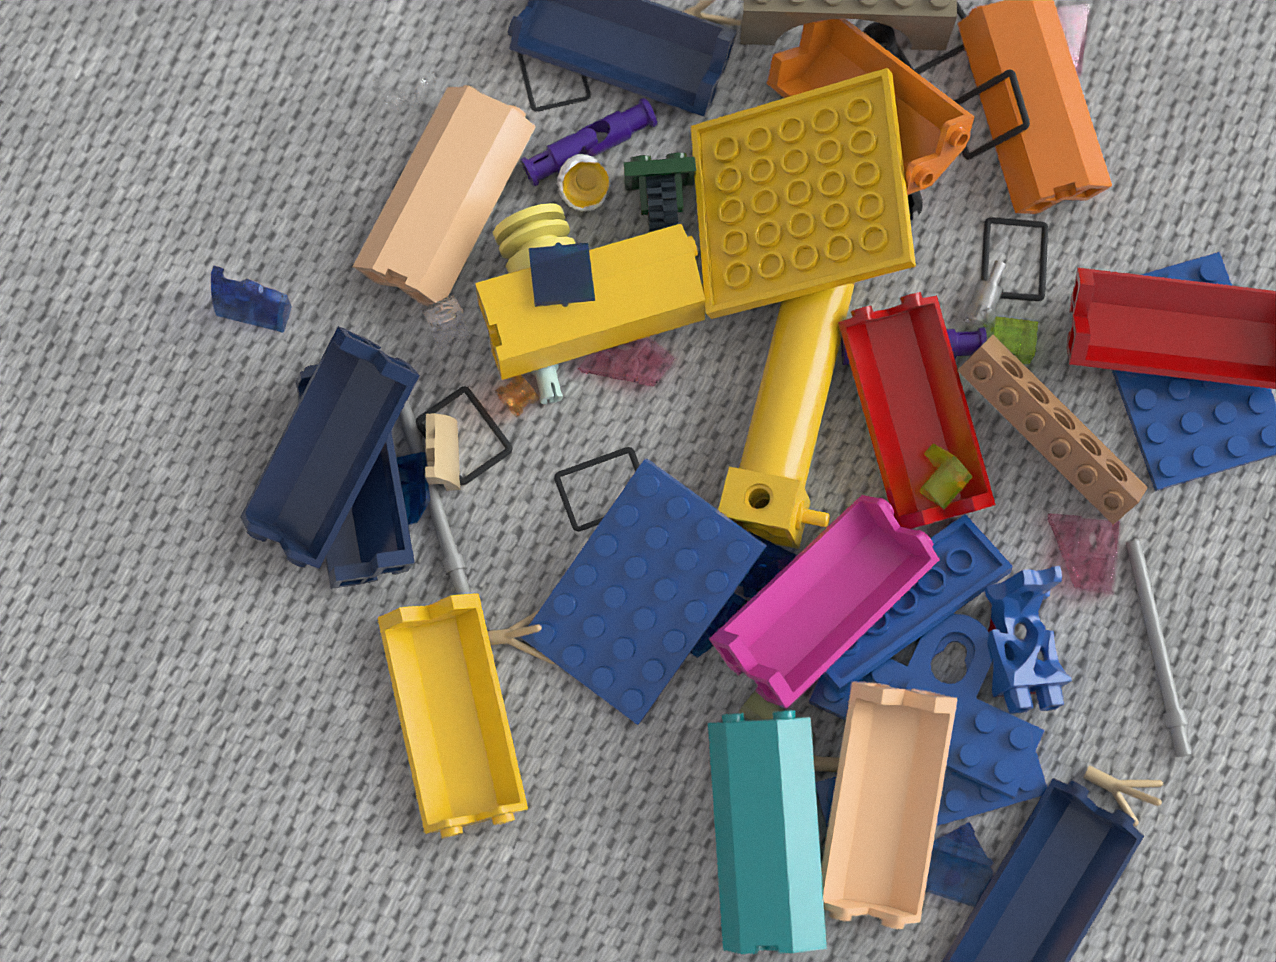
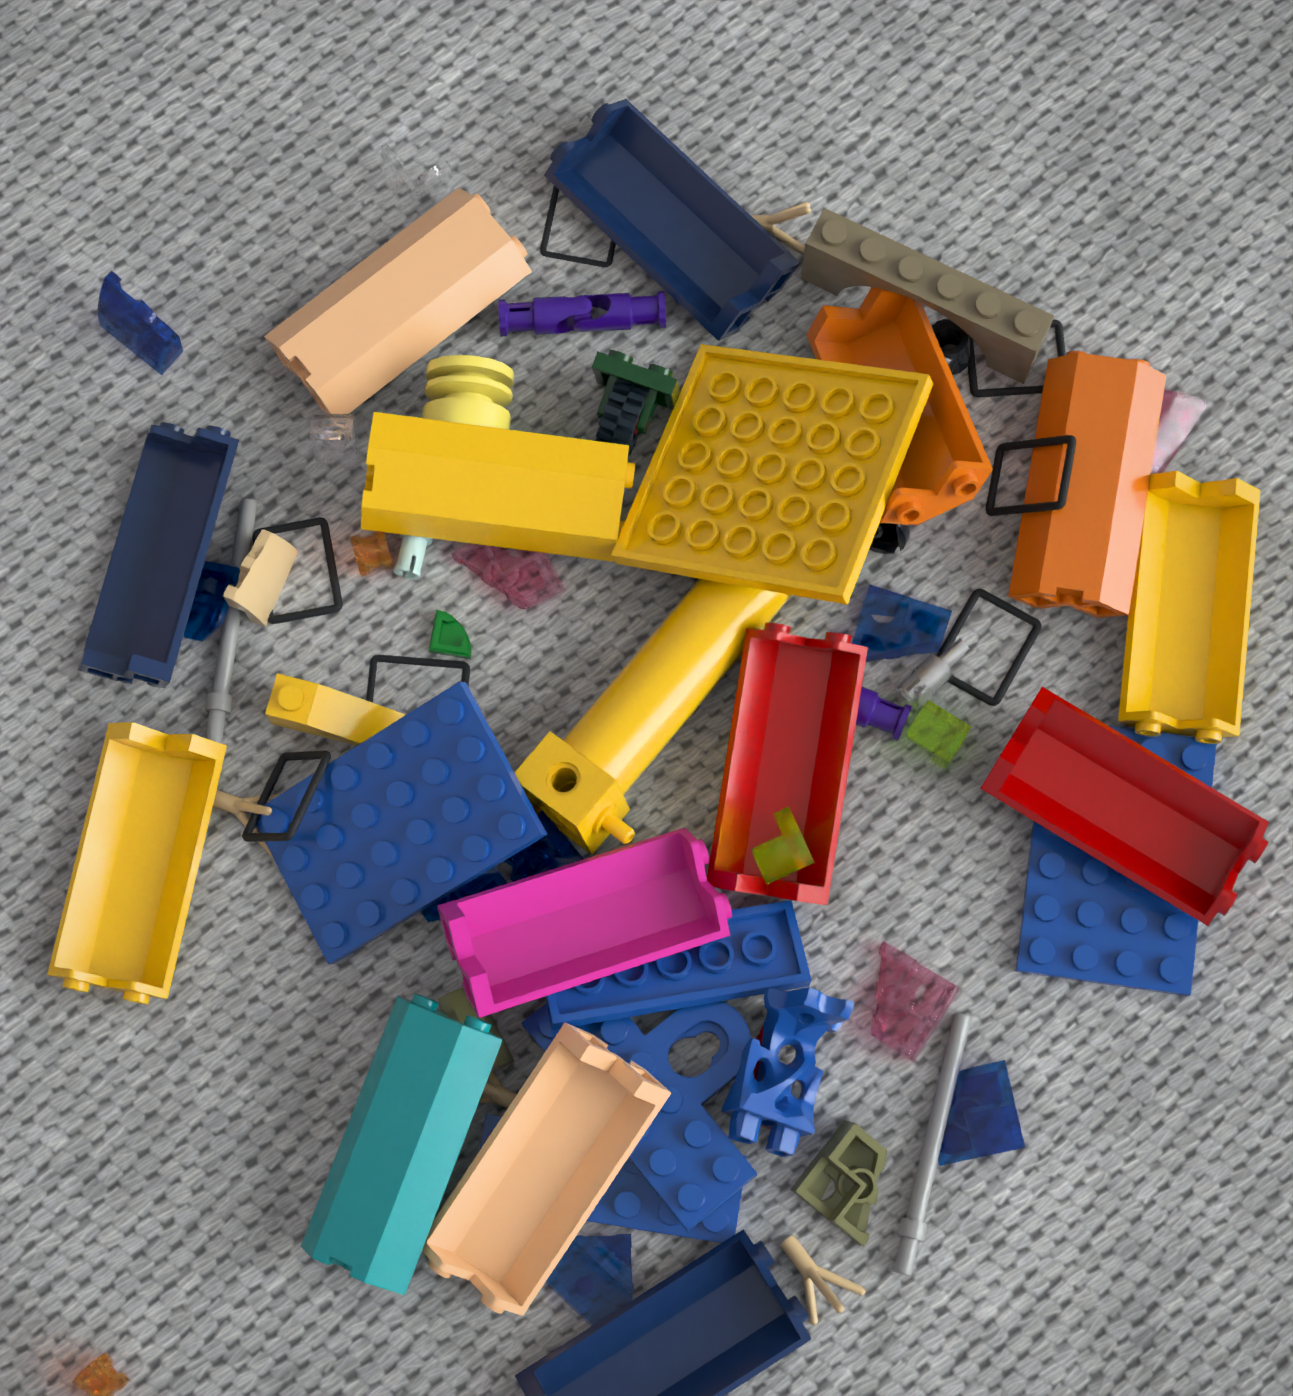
camera: 25 degrees right, 0 degrees up
(328, 448) = (139, 518): dark blue panel -> none
(544, 532) = (326, 711): none -> yellow slope
(561, 274) = (469, 443): clear blue piece -> none
(565, 610) = (325, 757): none -> black piece
(583, 183) = (552, 355): yellow hair -> none
(607, 433) = (449, 637): none -> green tile
(954, 270) = (915, 629): none -> clear blue slope
(1053, 429) = (928, 851): medium nougat brick -> none
(1108, 690) = (854, 1165): none -> olive slope
(1154, 162) = (1190, 609): none -> yellow panel
(1185, 609) = (981, 1116): none -> clear blue slope

